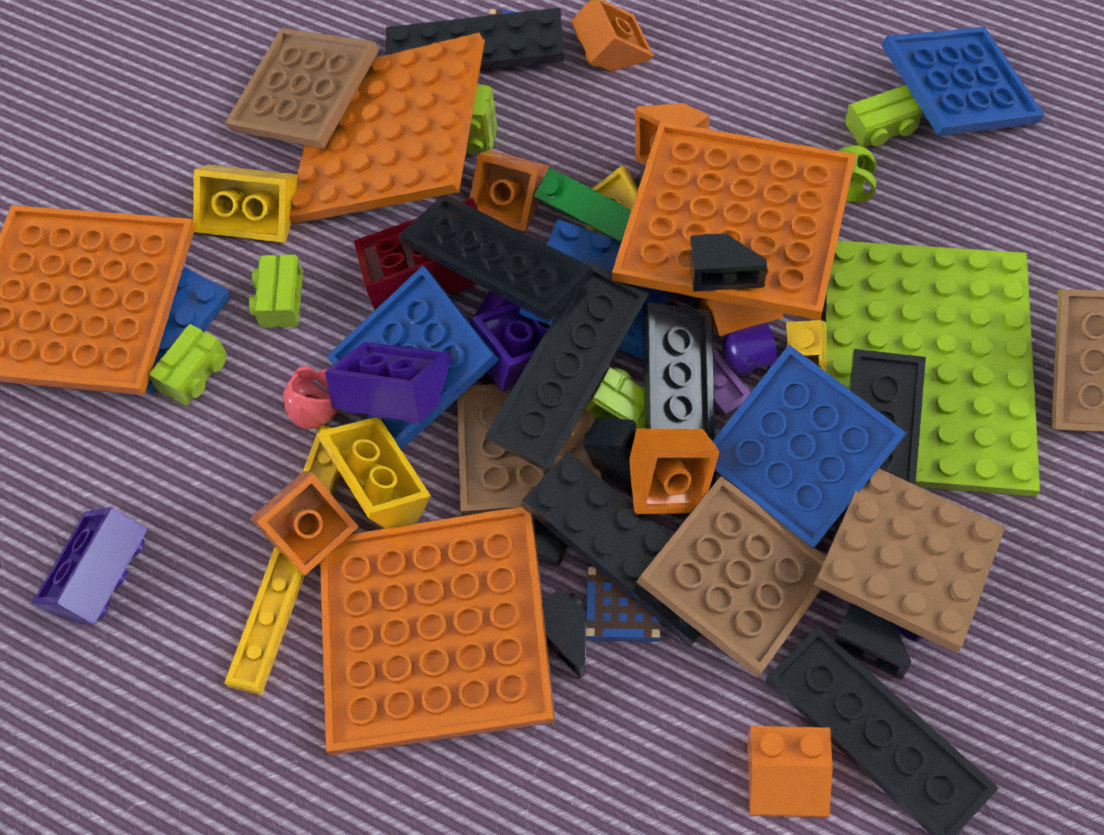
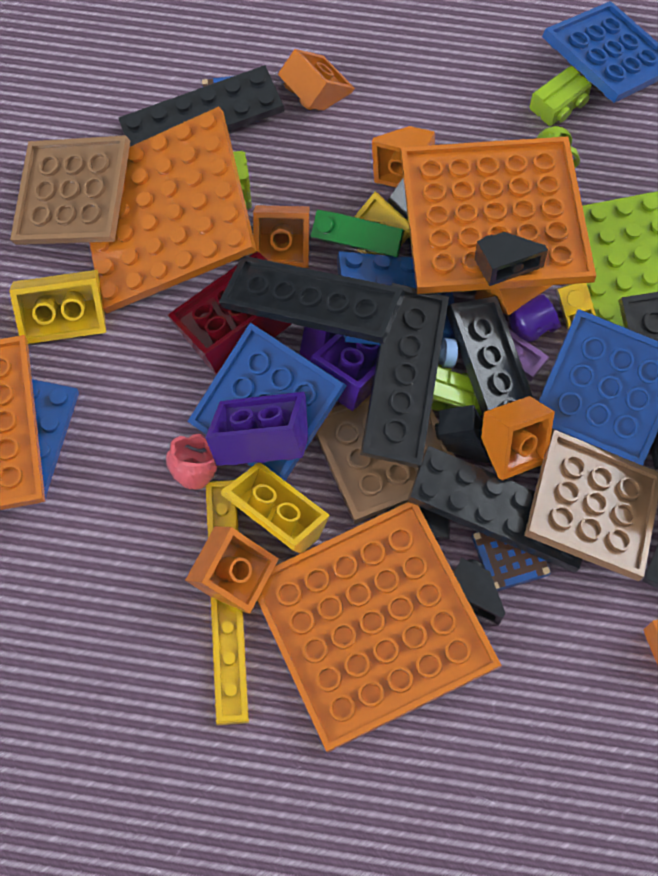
camera: 25 degrees left, 5 degrees up
(91, 566) = (58, 663): slope -> none
(188, 365) = (70, 464): lime brick -> none
(277, 291) = (121, 376): lime brick -> none
(629, 356) = (448, 353): none -> light blue tile

